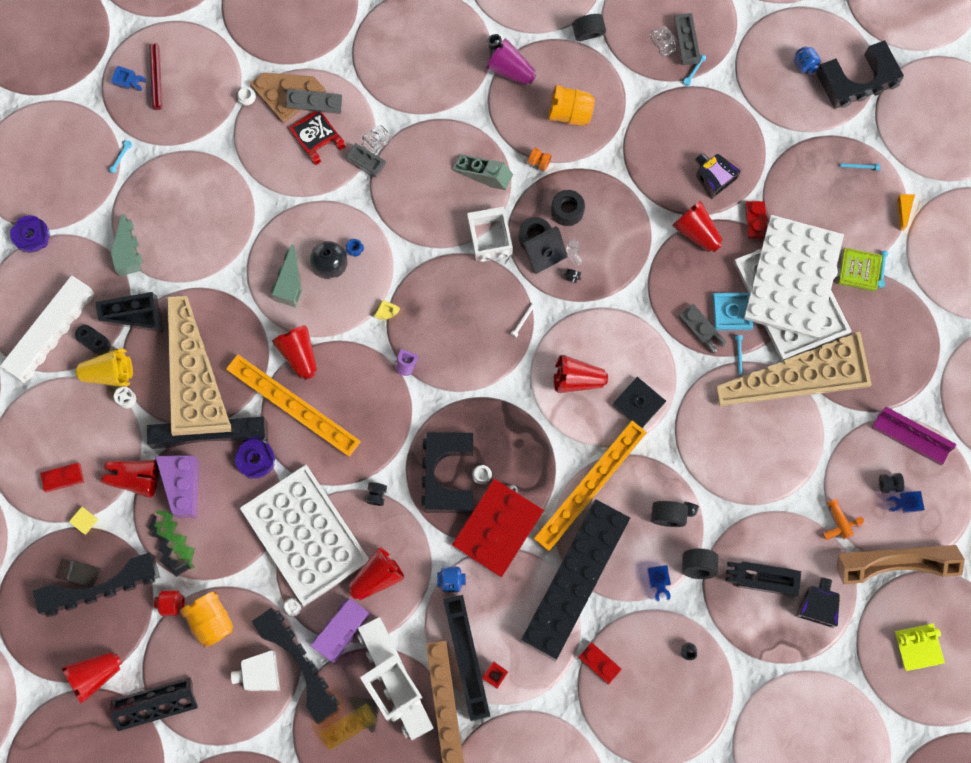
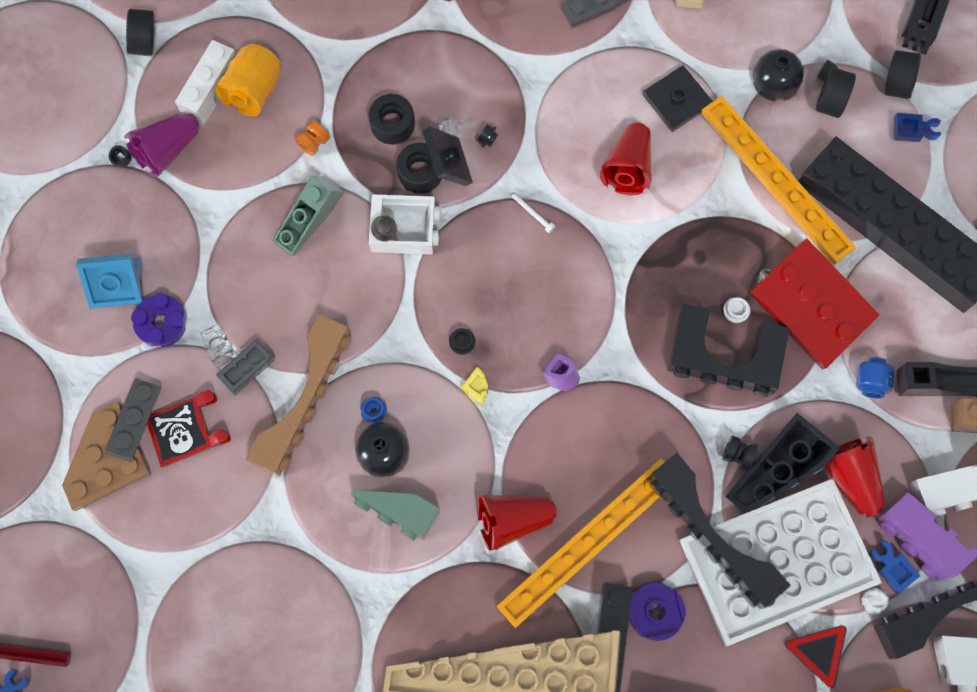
camera: 75 degrees left, 0 degrees up
(246, 96) = (91, 519): white plate -> none
(247, 572) = (821, 652): none -> piece
(287, 515) = (757, 578): none -> black arch
(315, 617) = (896, 570): none -> blue plate
(374, 525) = (789, 460): none -> black wedge
(382, 90) = (159, 305): none -> dark purple plate
(390, 205) = (274, 446): none -> medium nougat arch
(405, 61) = (111, 280): none -> dark azure bracket
(415, 293) = (462, 341): none -> black plate
(485, 219) = (387, 222): none -> clear smoke plate
(551, 75) = (199, 90): none -> white arch
(677, 473) = (778, 75): none -> black cylinder

